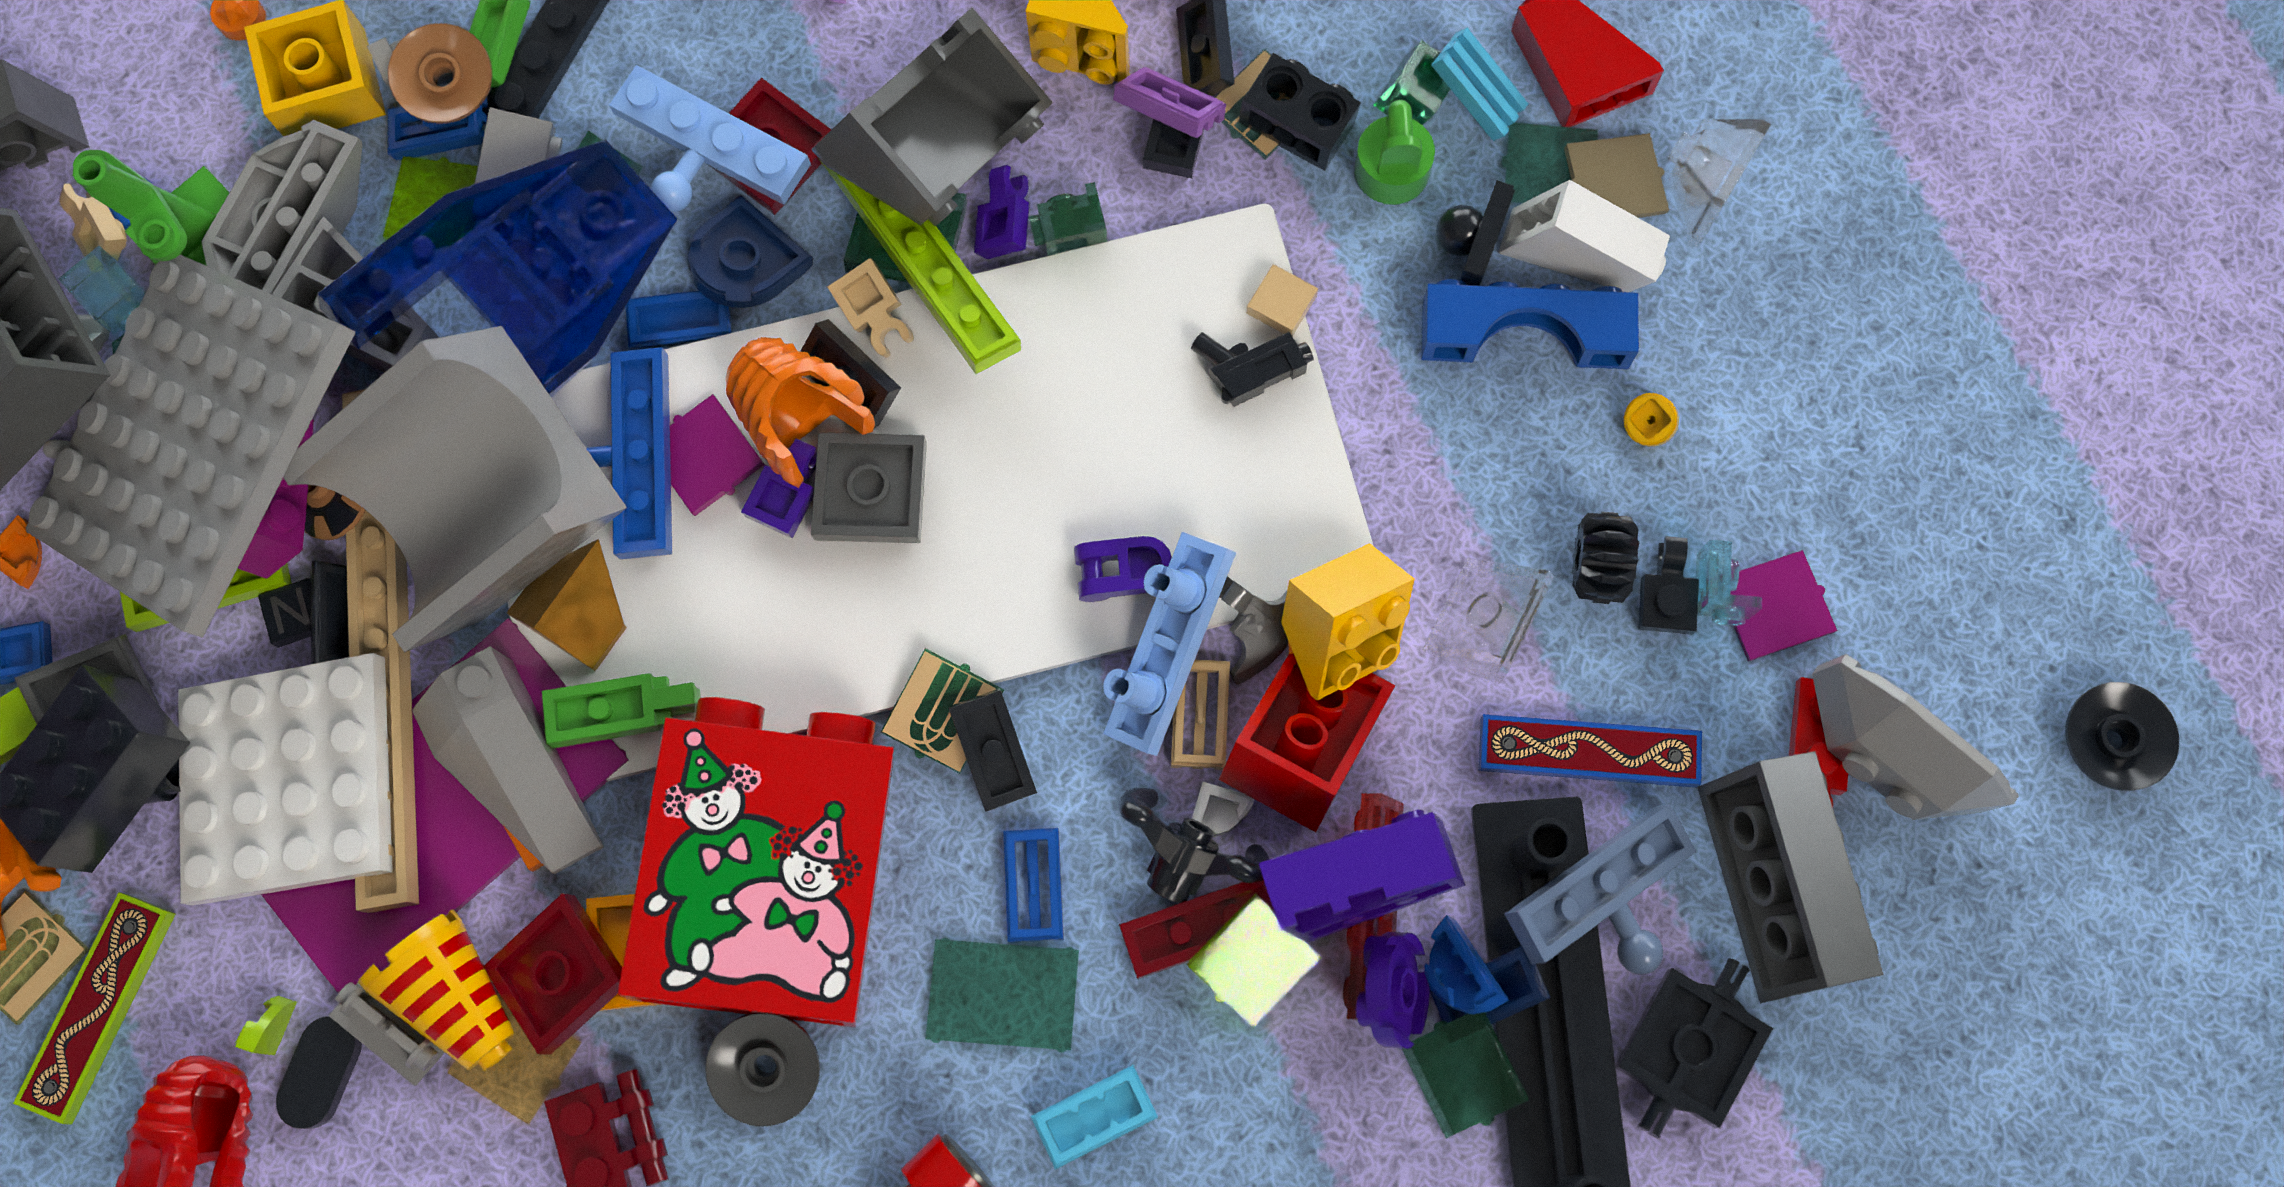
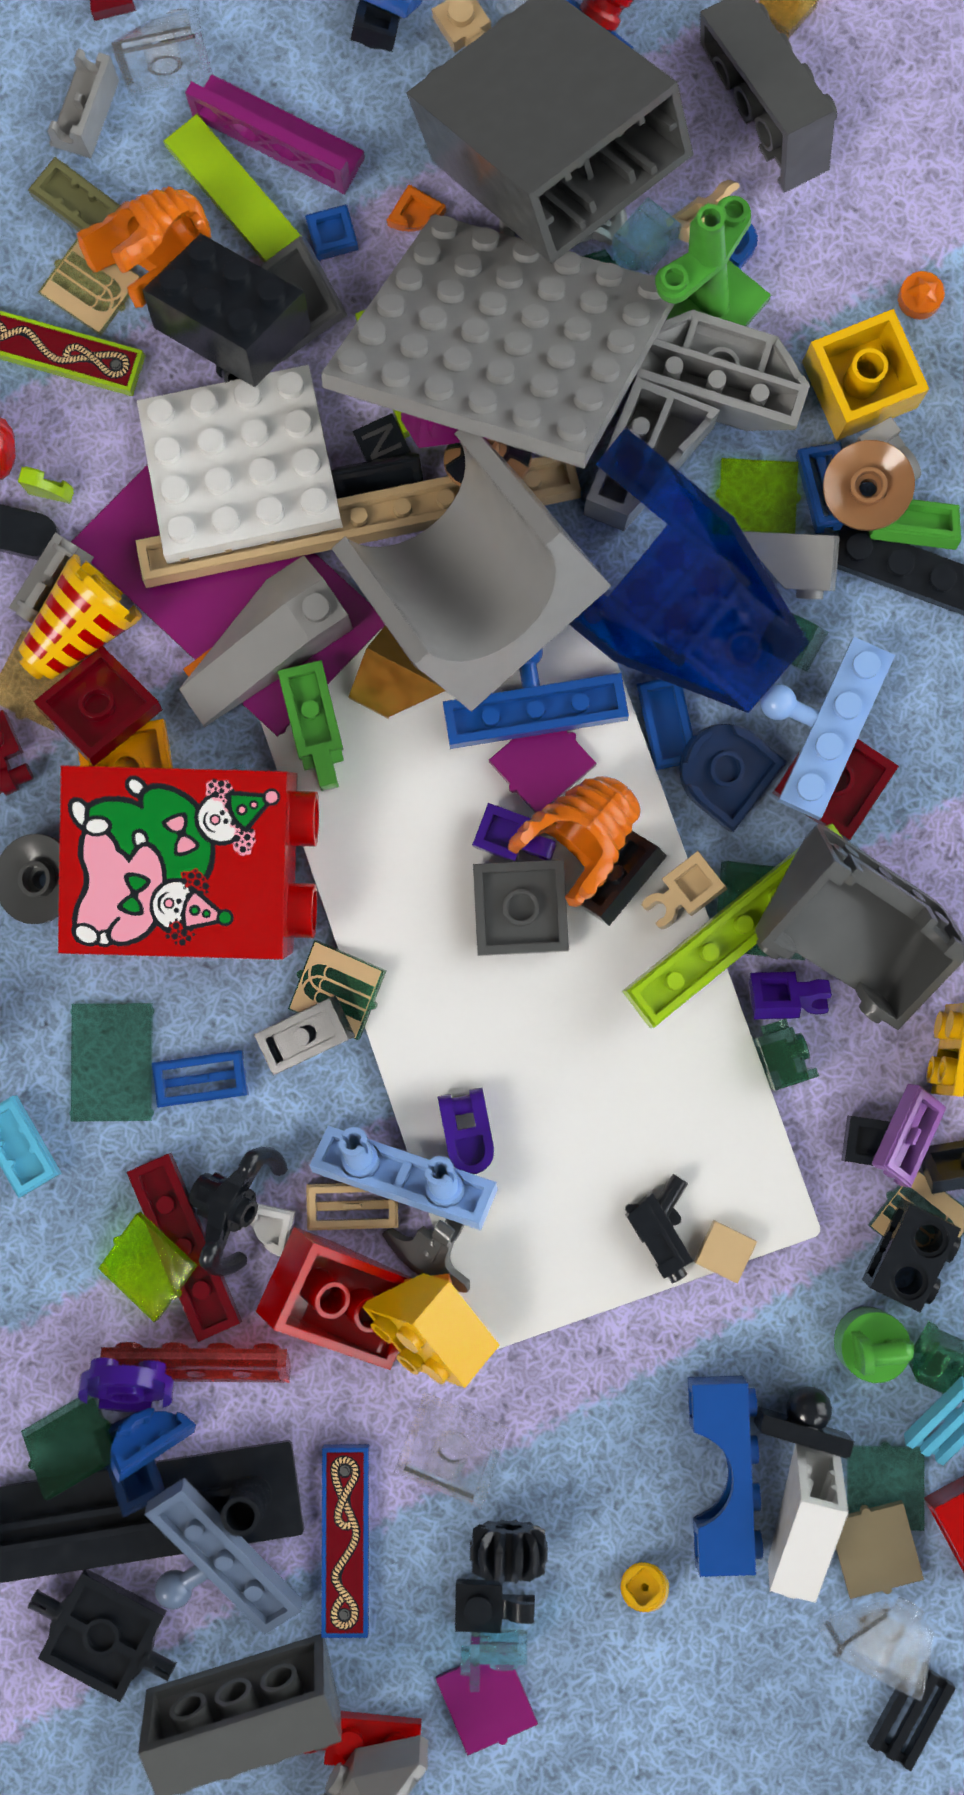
camera: 85 degrees right, 10 degrees up
(1361, 876) = (207, 1357): dark purple wedge -> none
(1802, 154) = (925, 1728): none -> black tile

